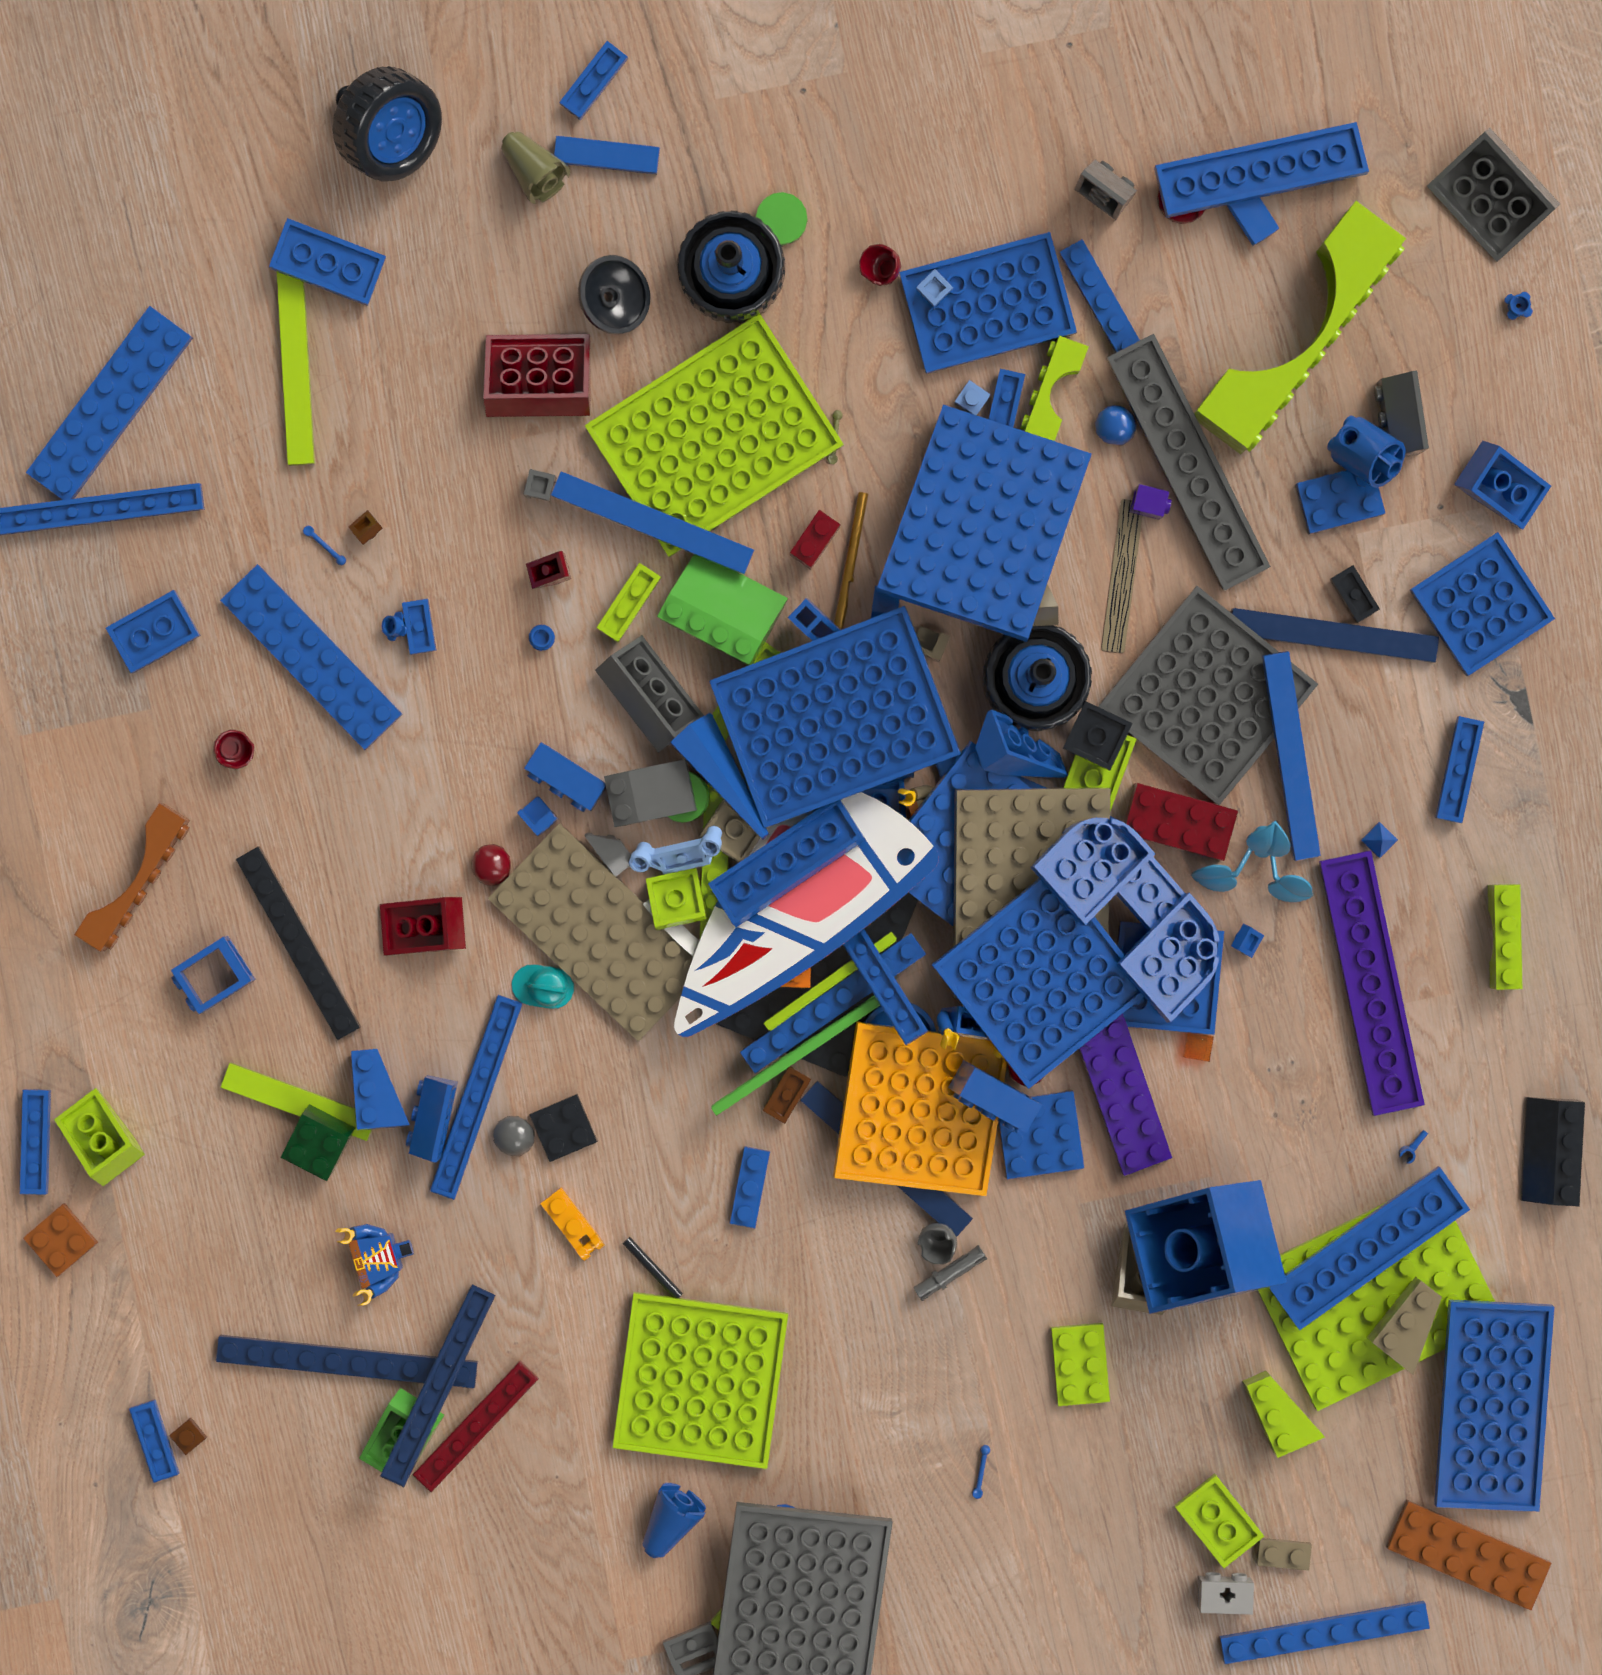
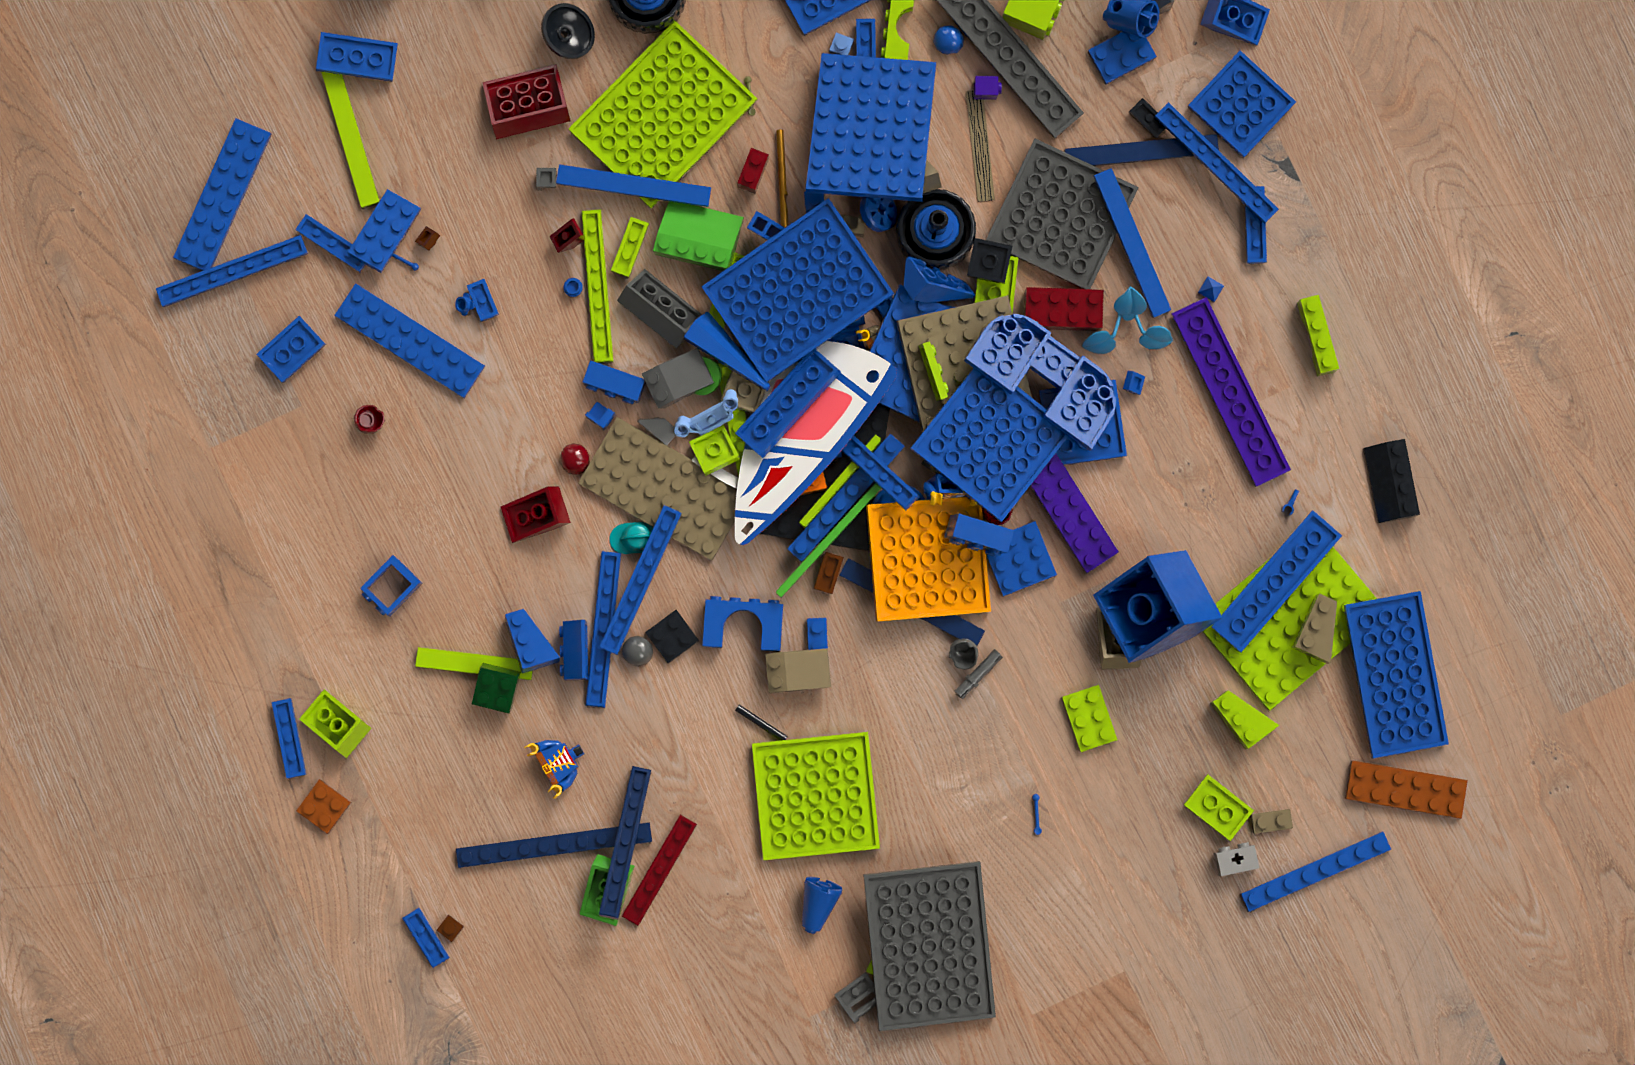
camera: 20 degrees left, 5 degrees down
(162, 833) = (303, 567): dark orange arch -> none
(240, 503) = (328, 240): none -> blue plate
(298, 943) = (448, 548): black plate -> none
(310, 504) = (384, 231): none -> blue plate
(539, 1046) = (640, 580): none -> blue plate
(572, 1223) = (694, 704): light orange plate -> none
(574, 643) = (597, 286): none -> lime tile
(695, 1129) = (719, 610): none -> blue arch
(715, 1214) = (798, 670): none -> dark tan slope
(965, 647) = (877, 220): none -> blue wheel
(988, 869) = (933, 370): none -> lime plate
(1198, 1046) = (1117, 467): clear orange plate -> none
(1429, 676) = (1216, 163): none -> blue plate

